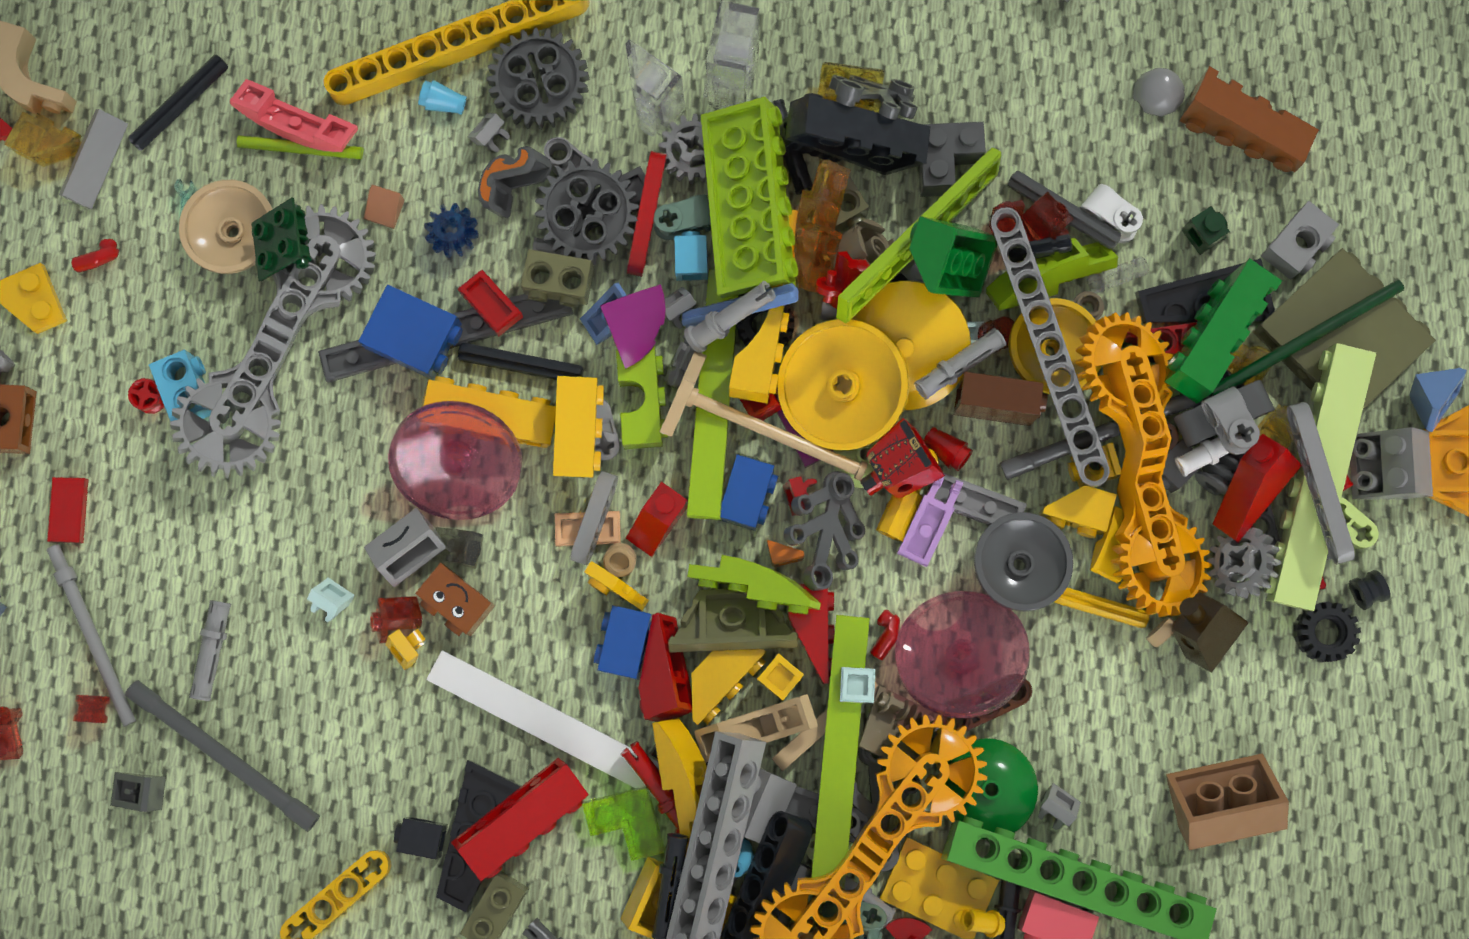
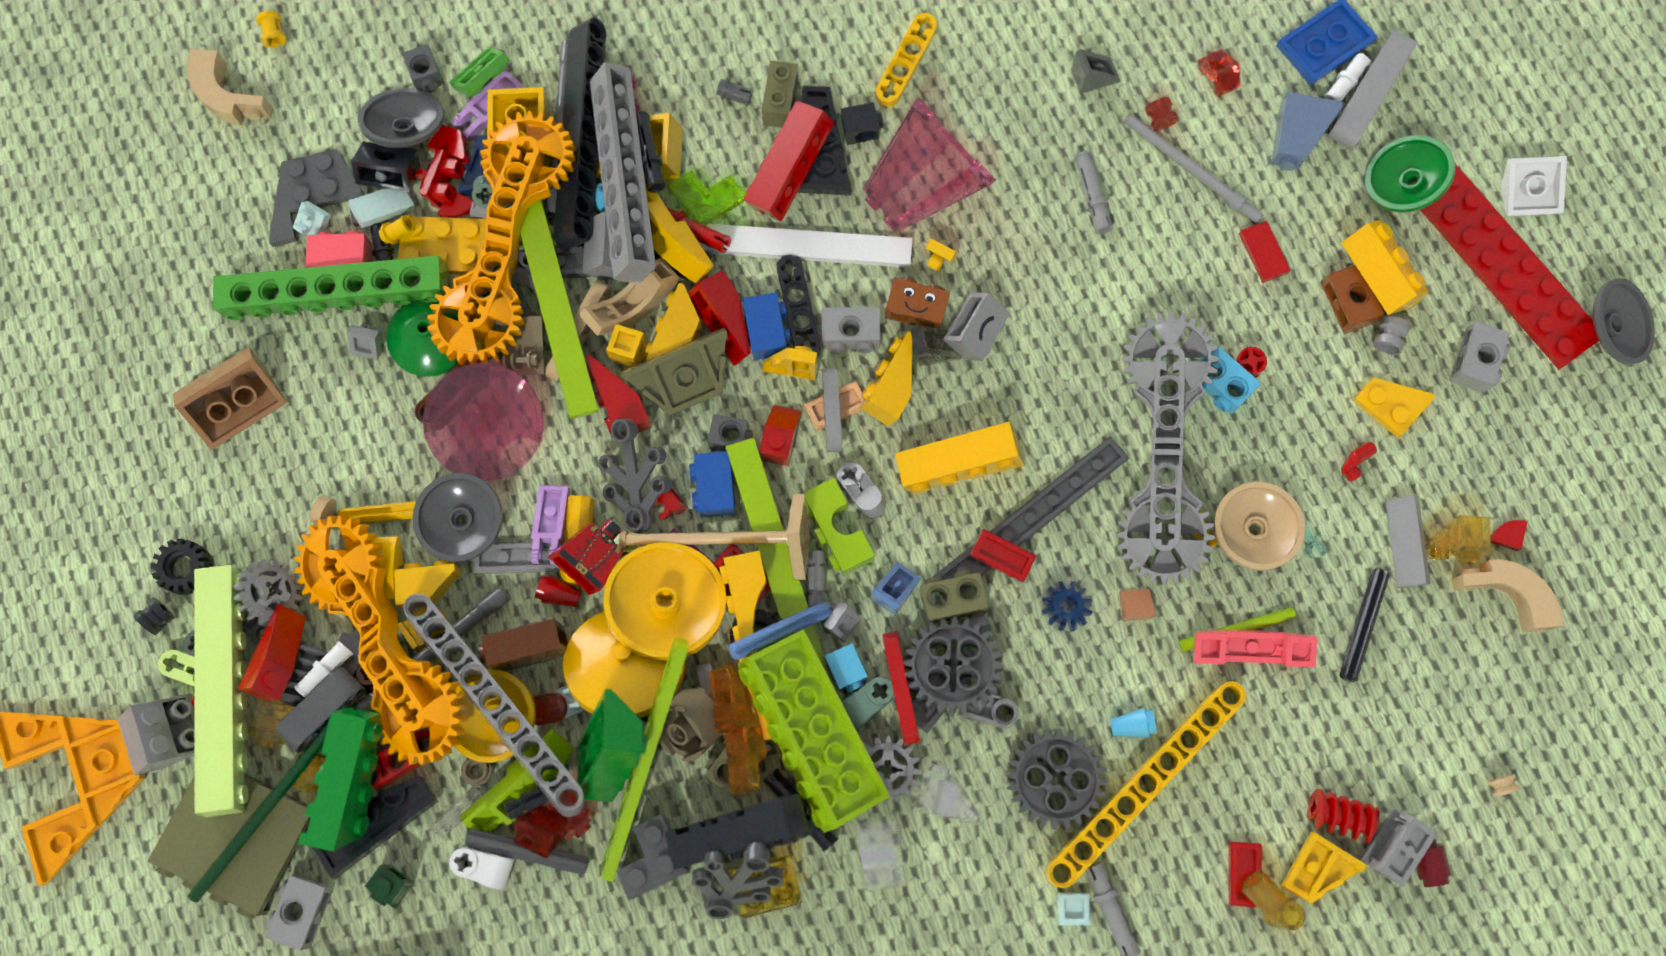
camera: 155 degrees right, 5 degrees down
(280, 239) = (1206, 524): dark green hinge -> none
(290, 806) = (1115, 137): dark grey piece -> none
(330, 598) = (1018, 267): light aqua tile -> none
(378, 739) = (922, 171): none -> clear pink cone
(395, 614) = (958, 273): clear red bracket -> none
(411, 332) = (1055, 499): blue brick -> none
(455, 460) = (966, 404): clear pink dish -> none
(486, 130) = (1079, 710): light grey tile -> none
(507, 173) = (1045, 670): dark grey animal -> none
(517, 362) = (953, 517): black axle -> none
(517, 596) = (864, 319): none -> light grey brick
(521, 520) = (893, 386): none -> yellow slope
(577, 426) = (877, 471): yellow slope -> none
(577, 651) = (798, 308): none -> black beam
(619, 559) = (798, 390): tan tile -> none
(635, 322) = (866, 581): magenta brick -> none
(718, 323) = (792, 605): light grey pin -> none
(723, 545) = (723, 424): none -> dark grey brick
(759, 583) = (666, 410): lime slope -> none
(783, 554) = (667, 443): orange slope -> none
(840, 278) = (694, 682): red hips -> none
(857, 685) = (558, 358): light aqua tile -> none
(888, 637) = (550, 418): red arm -> none
(950, 370) = (570, 654): light grey pin -> none
(1206, 630) = (282, 525): dark brown torso -> none
(1229, 416) = (311, 699): light grey piece -> none
(1320, 483) = (215, 674): light grey beam -> none
(1434, 393) = (138, 811): medium blue slope -> none

